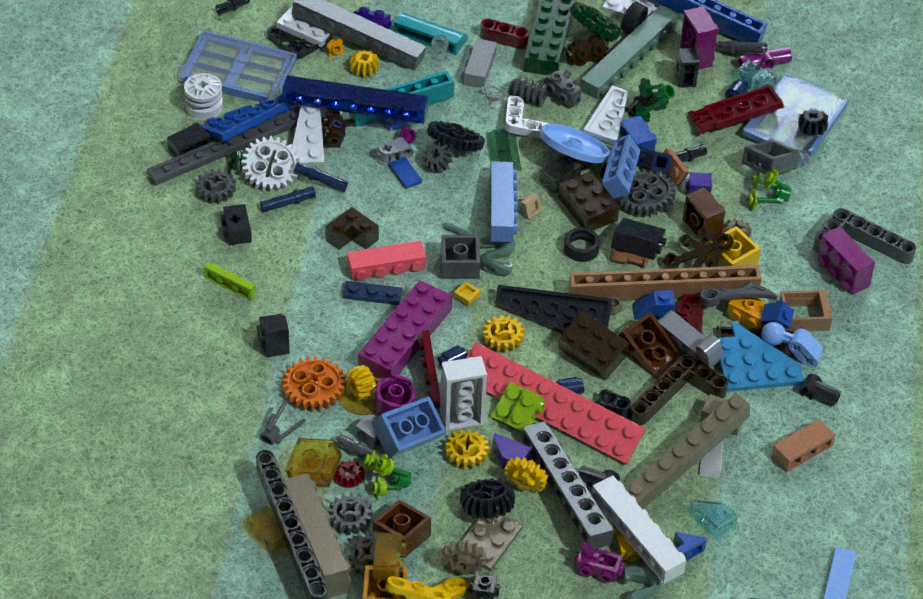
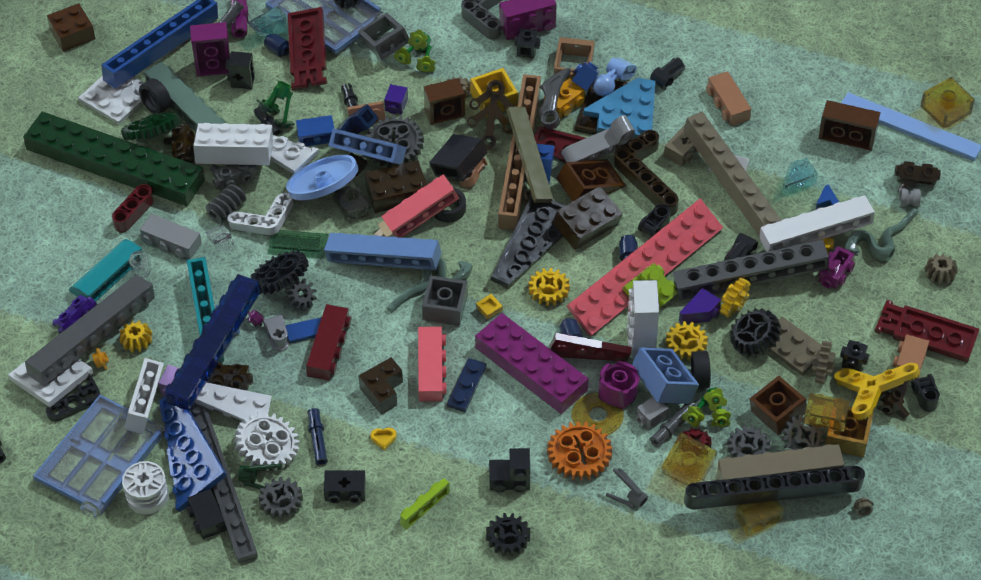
camera: 75 degrees left, 5 degrees up
(208, 344) = (508, 534): none -> black gear
(275, 71) = (143, 396): none -> white brick
(299, 245) = (383, 437): none -> yellow tile
(318, 175) = (294, 404): dark blue pin -> none
(361, 382) = (597, 405): yellow gear -> none
(391, 186) = (328, 342): none -> dark red brick
(425, 450) = (701, 368): none -> black tyre
(563, 218) = (420, 206): none -> coral brick
(585, 72) = (233, 144): none -> white brick
(651, 282) = (529, 155): none -> olive tile
(798, 550) = (849, 125): none -> brick
(811, 269) = (527, 43): none -> black brick

